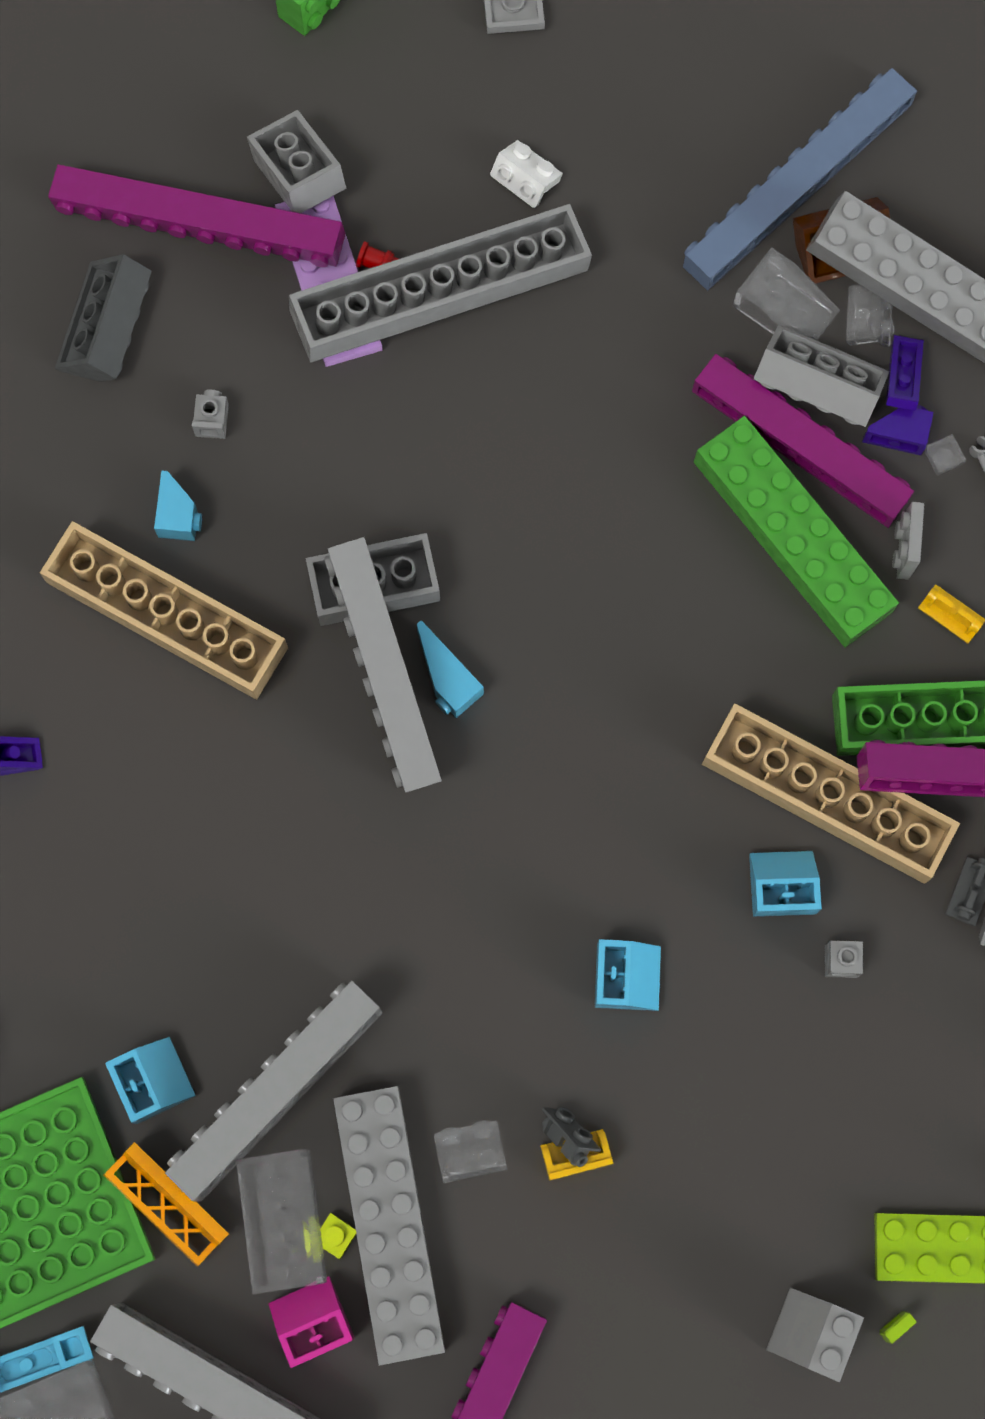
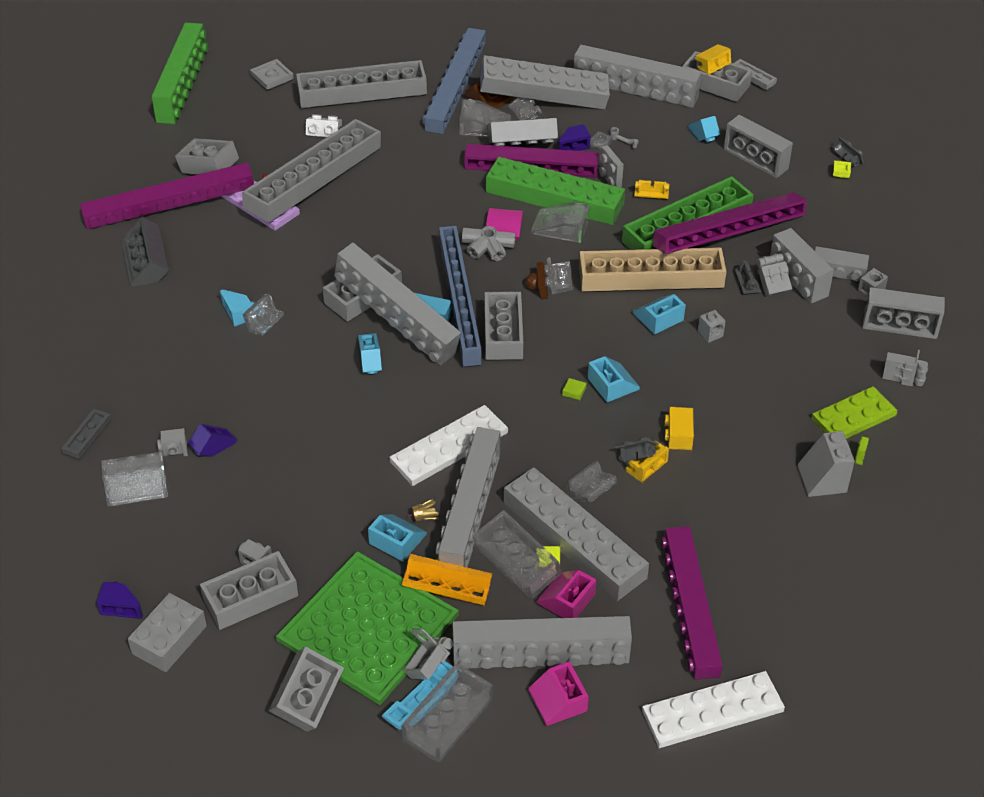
camera: 30 degrees left, 30 degrees down
(62, 1321) = (428, 656): none -> light grey piece
(164, 610) = (260, 343): tan brick -> none
(199, 553) = (262, 315): none -> clear bracket
(209, 1055) = (421, 512): none -> pearl gold piece
(210, 424) = (227, 262): light grey brick -> none
(312, 711) = (370, 353): none -> medium azure slope
(322, 952) = (443, 446): none -> white plate
(505, 677) = (460, 296): none -> sand blue brick
(531, 778) = (503, 325): none -> light grey brick
(564, 954) = (574, 389): none -> lime tile
(622, 596) = (488, 240): none -> light grey piece
(636, 111) = (361, 84): none -> light grey brick
(647, 711) = (538, 281): none -> reddish brown tile
(662, 1125) = (680, 428): none -> yellow brick
(673, 554) = (505, 220): none -> dark pink slope
(682, 720) = (559, 276): none -> clear bracket
(762, 603) = (562, 221): none -> clear slope
(904, 373) = (564, 119): dark purple plate -> none

